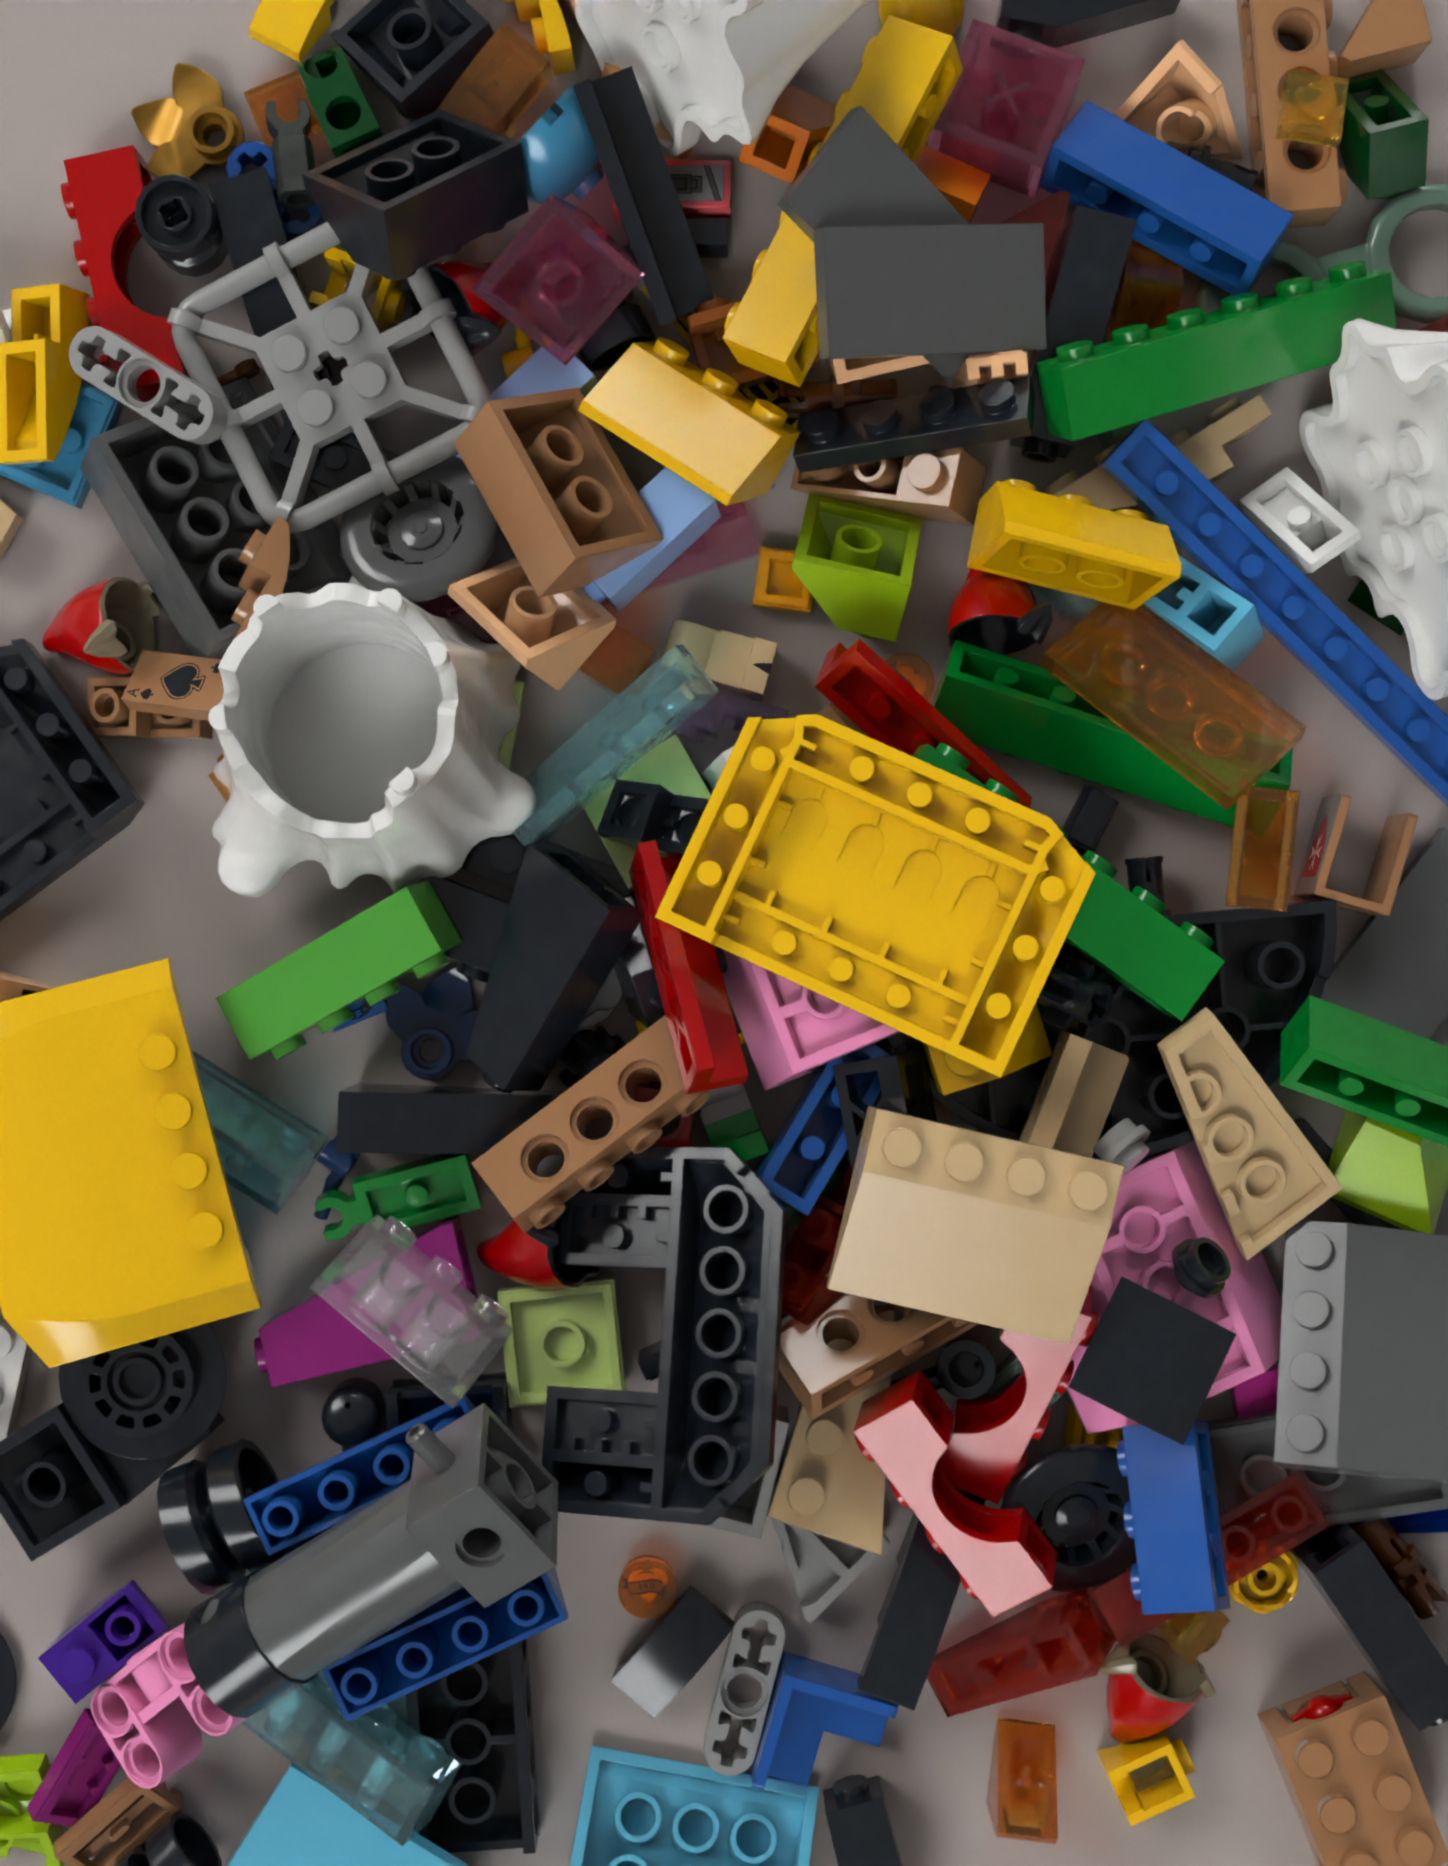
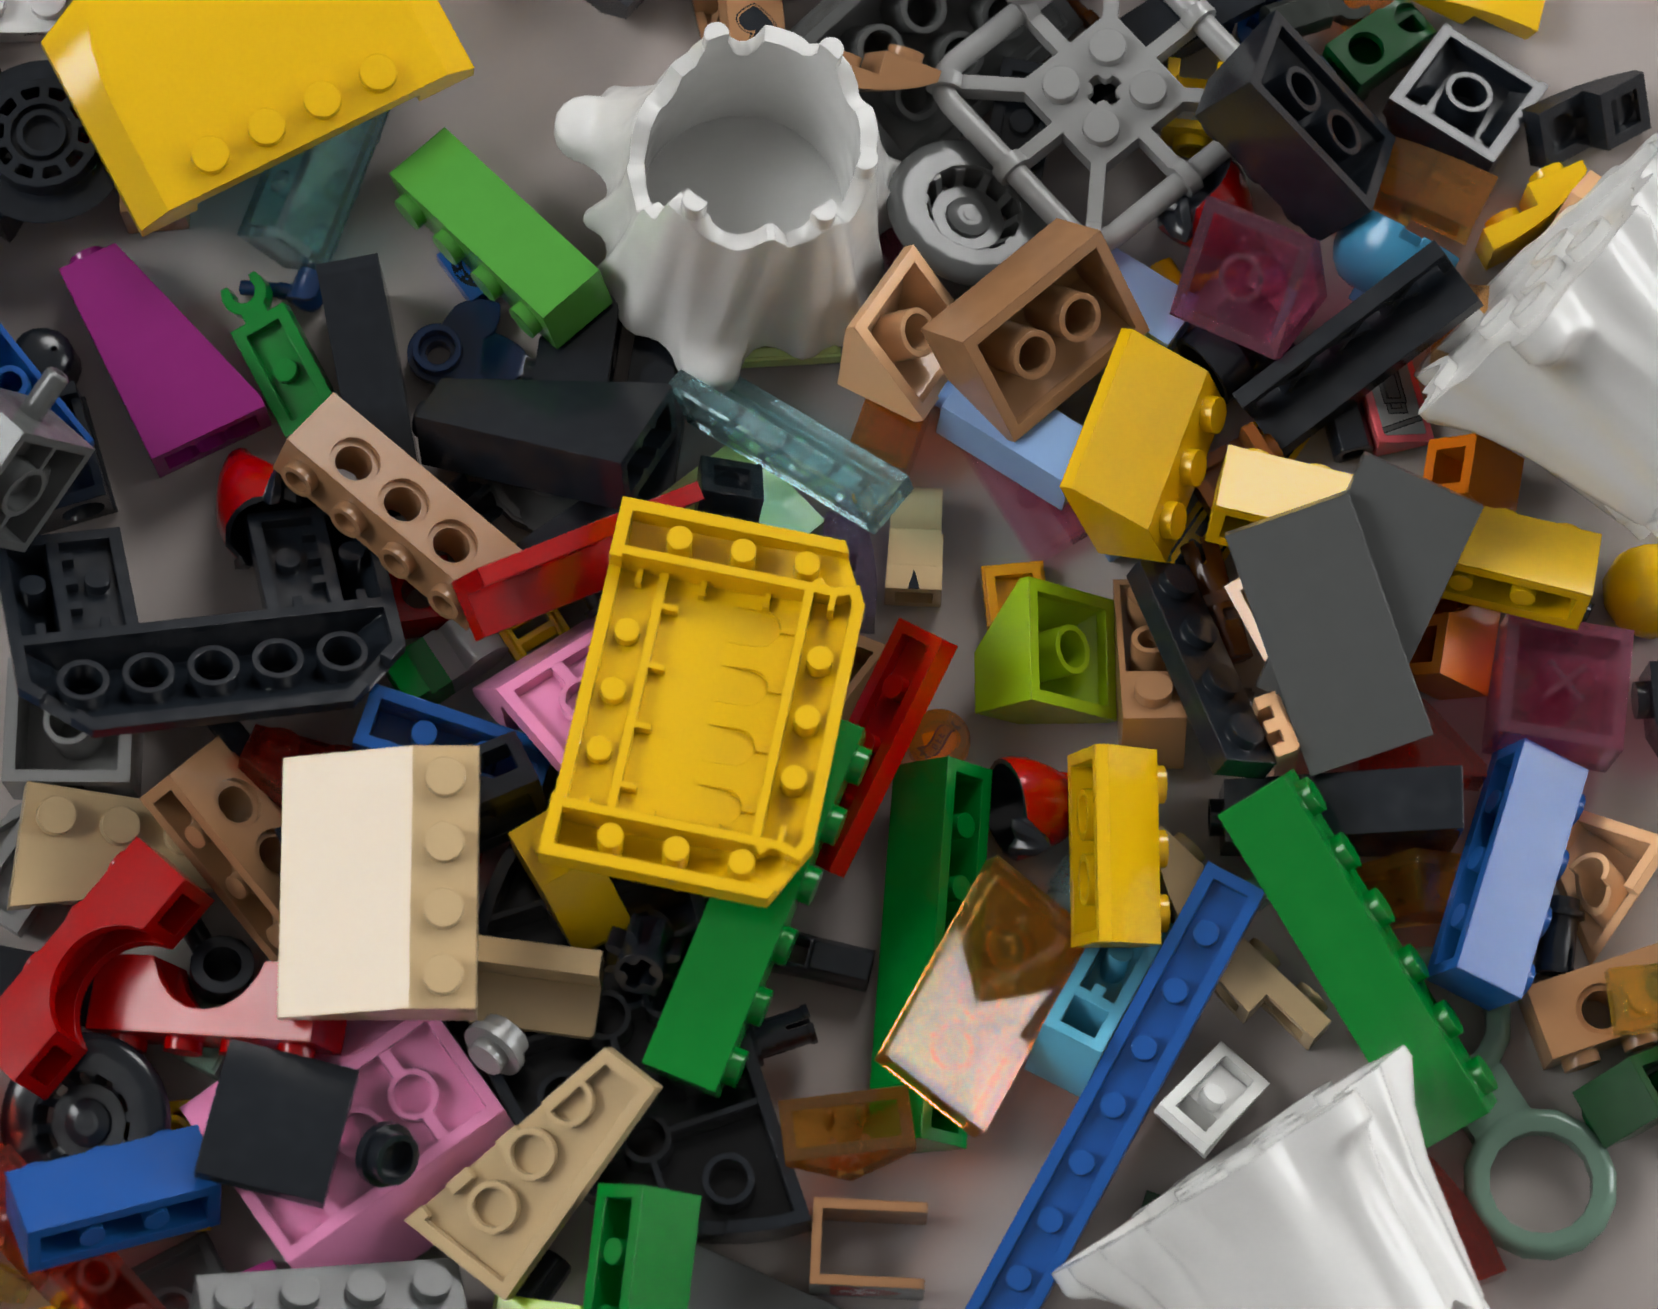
camera: 75 degrees right, 15 degrees down
(414, 1308) = (173, 376): clear slope -> none
(562, 1340) = (171, 548): yellowish green plate -> none

